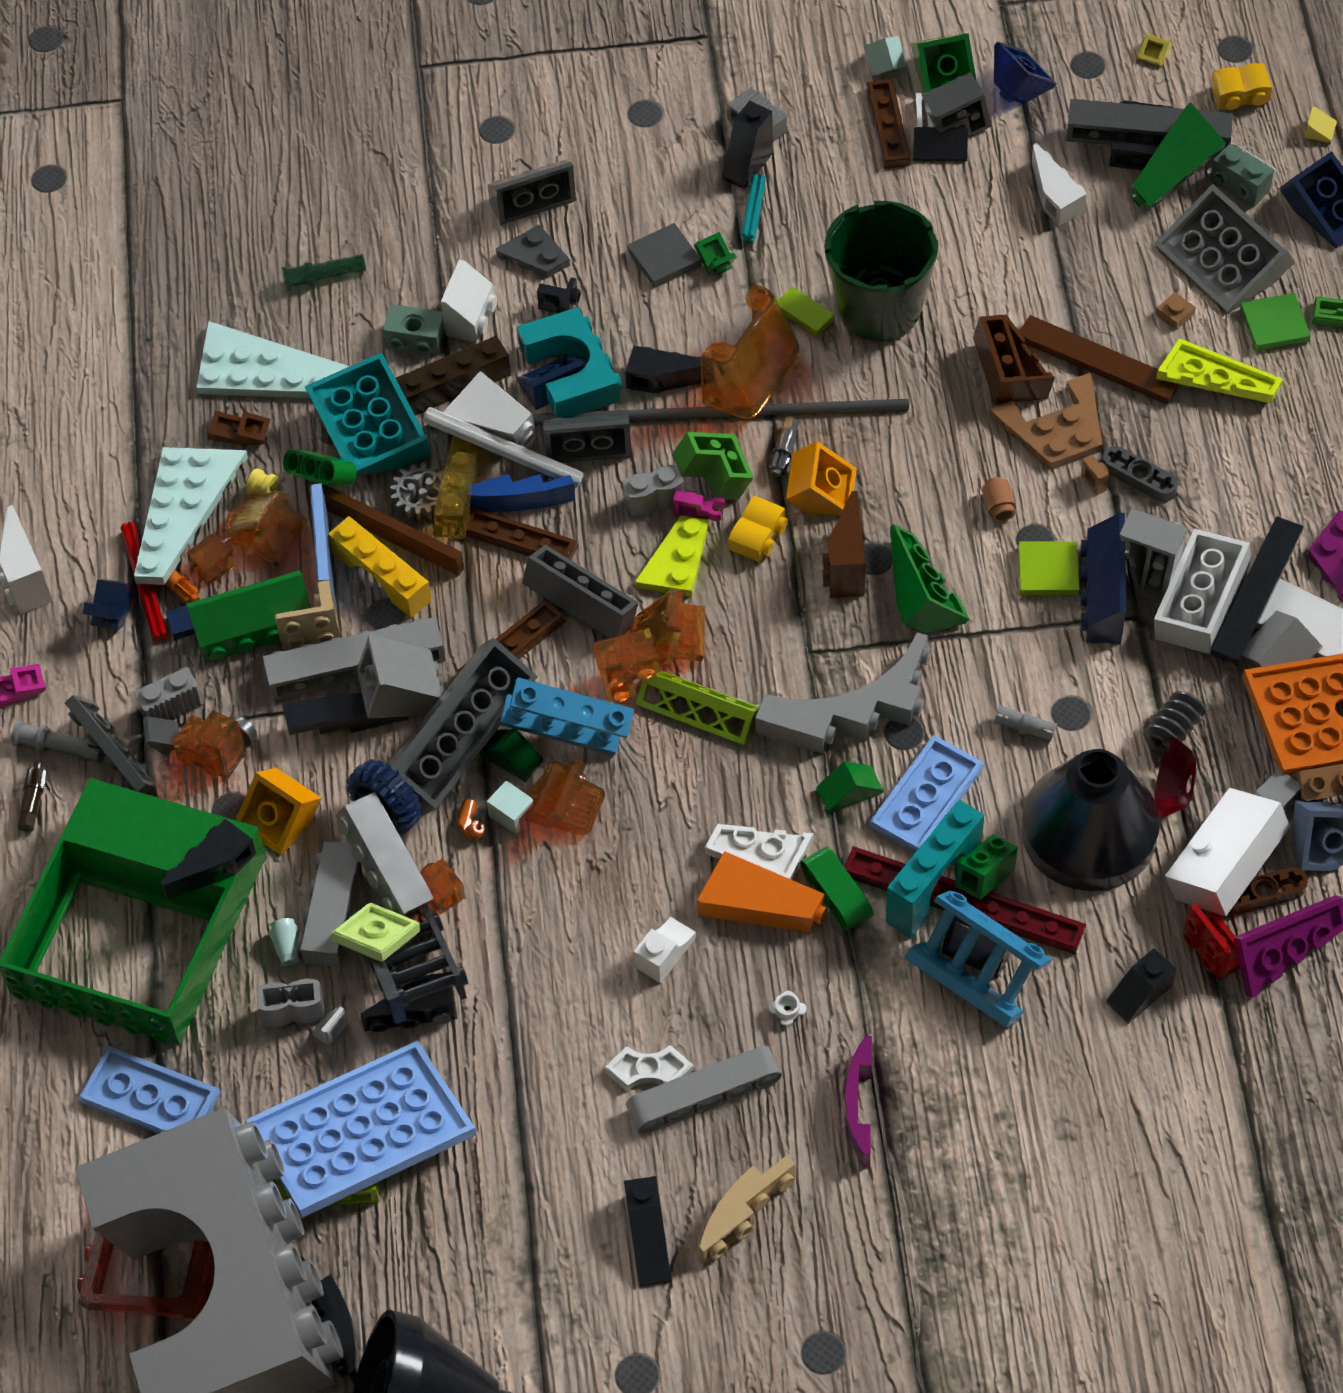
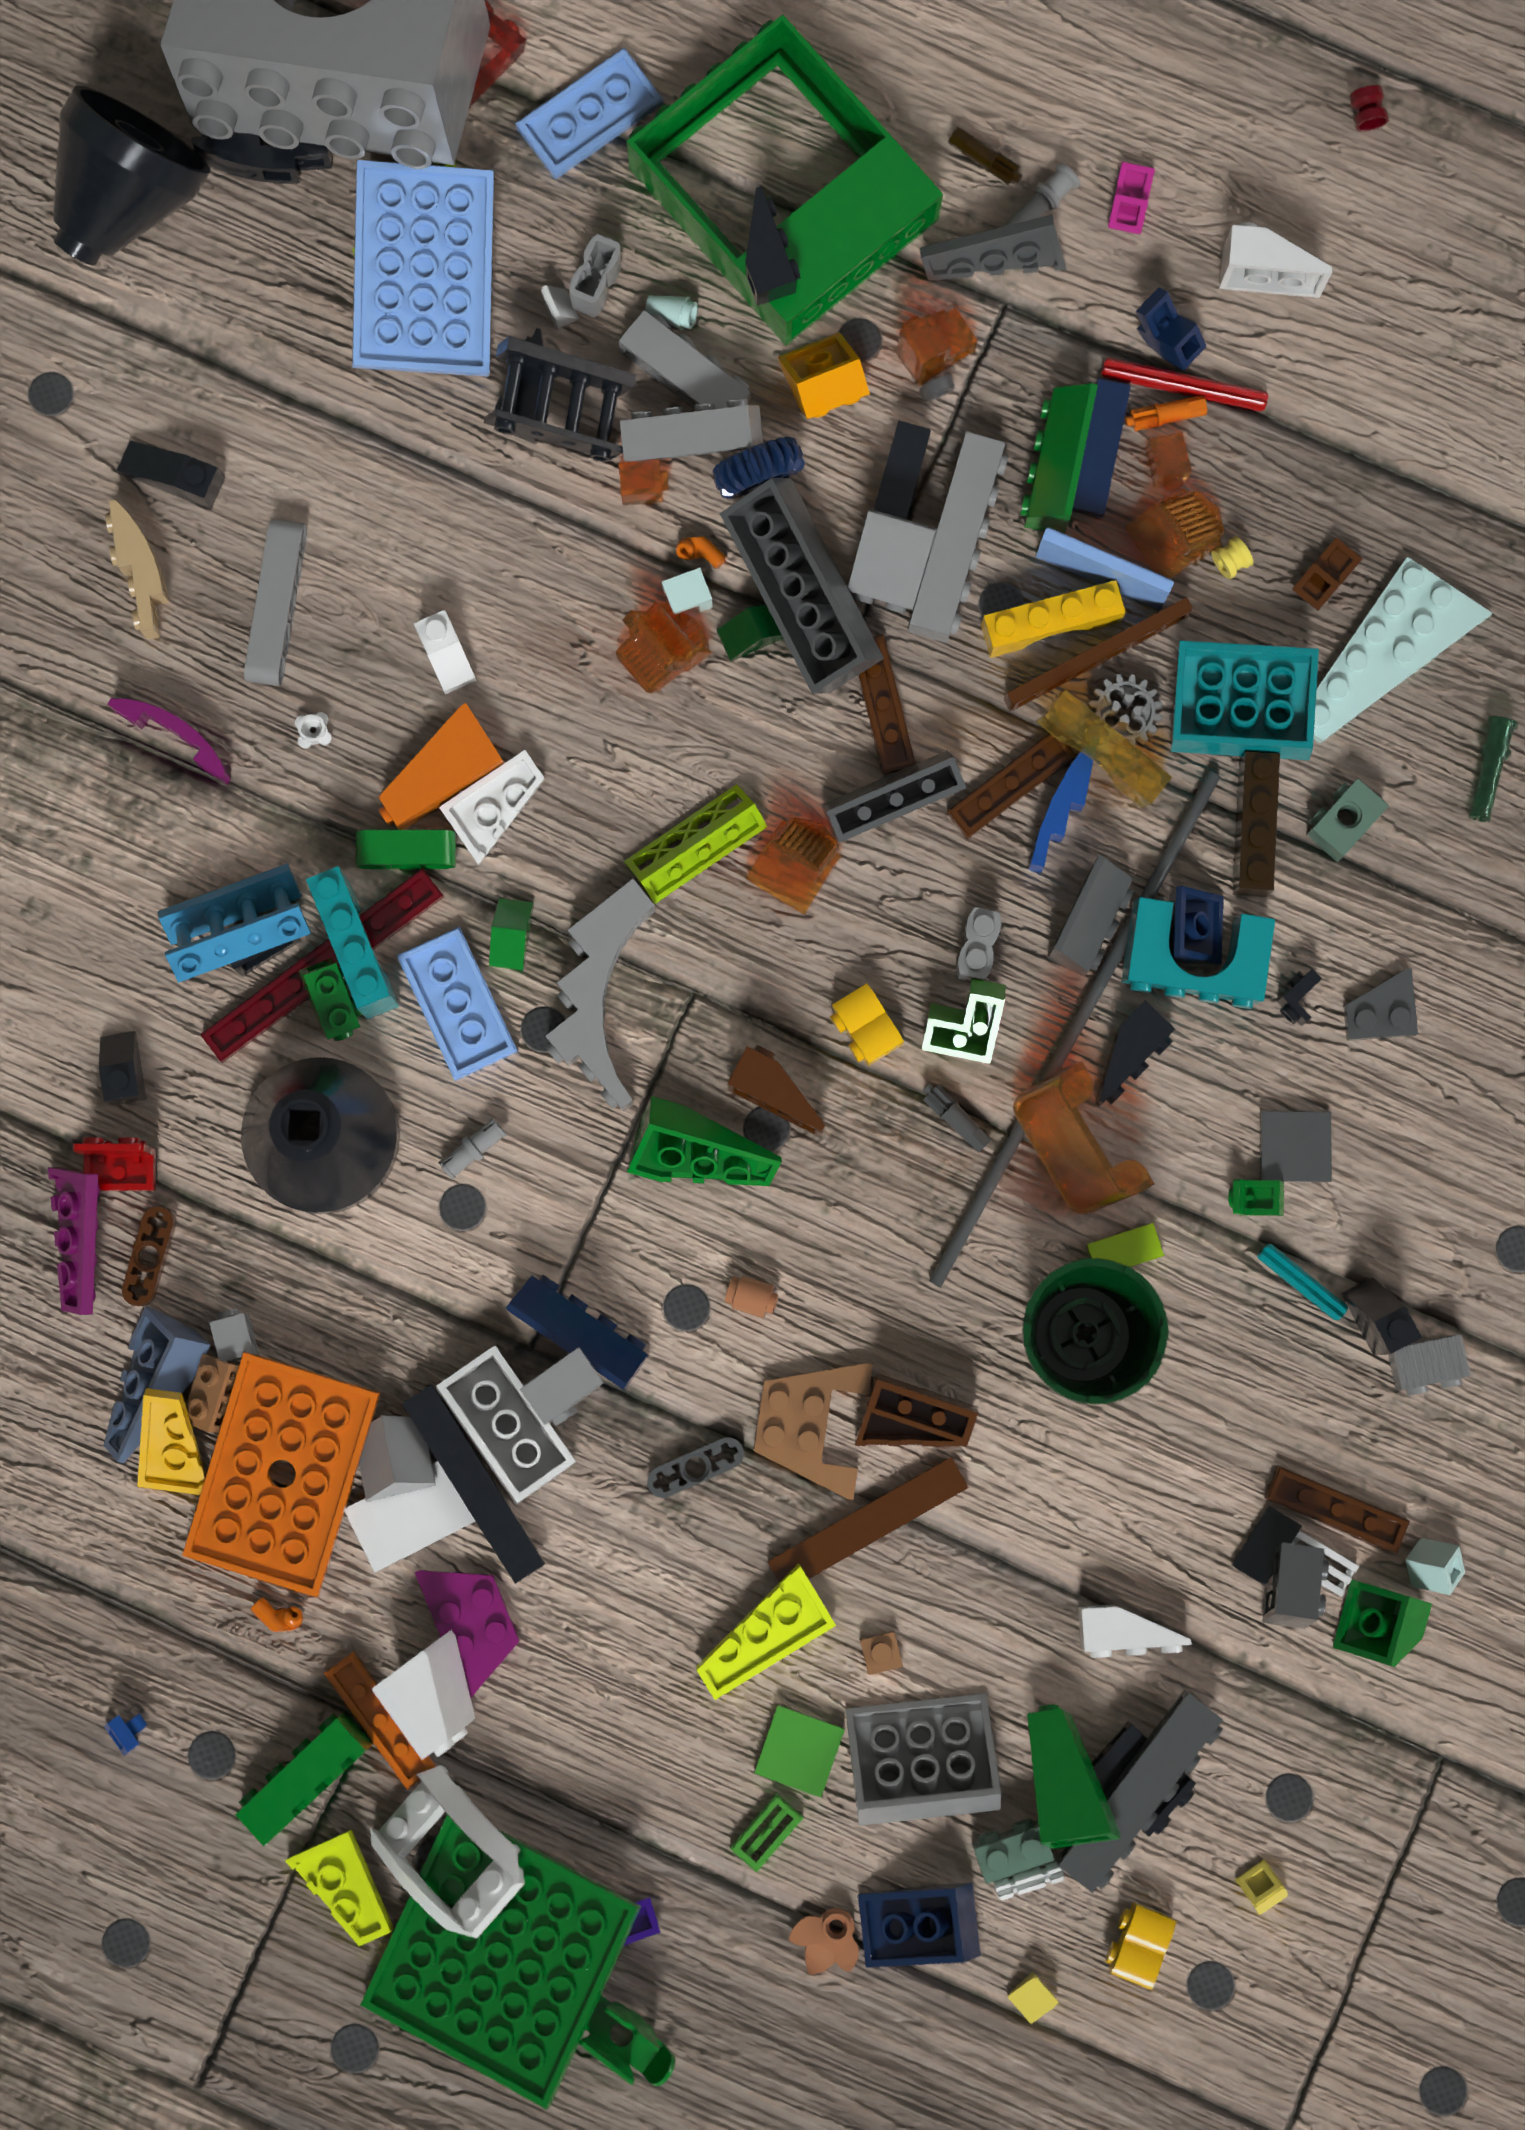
camera: 115 degrees right, 25 degrees up
(160, 733) = (981, 308): dark grey slope -> none
(169, 695) = (1019, 334): light grey brick -> none
(182, 500) = (1262, 470): light aqua wing -> none
(311, 624) = (1018, 532): tan bracket -> none
(319, 468) = (1208, 616): green beam -> none
(375, 932) = (612, 382): yellowish green tile -> none
(467, 303) = (1342, 889): white slope -> none
(493, 410) = (1165, 824): white slope -> none
(500, 446) = (1116, 811): white axle -> none
(532, 191) = (1469, 1048): dark grey slope -> none
(566, 716) = (733, 683): dark azure fence -> none
(625, 660) = (770, 784): clear orange brick -> none
(636, 1068) = (325, 582): white tile -> none
(677, 558) = (885, 927): neon yellow wing -> none
(694, 506) = (939, 975): dark pink plate -> none
(820, 480) = (884, 1126): light orange slope -> none
(1019, 74) = (1314, 1702): clear blue slope -> none
(1048, 568) = (639, 1294): lime tile -> none
(1095, 474) = (718, 1417): medium nougat plate -> none
(1173, 775) = (303, 1236): dark red piece -> none
(1174, 720) = (375, 1293): dark grey piece -> none
(1227, 851) = (197, 1239): white brick -> none

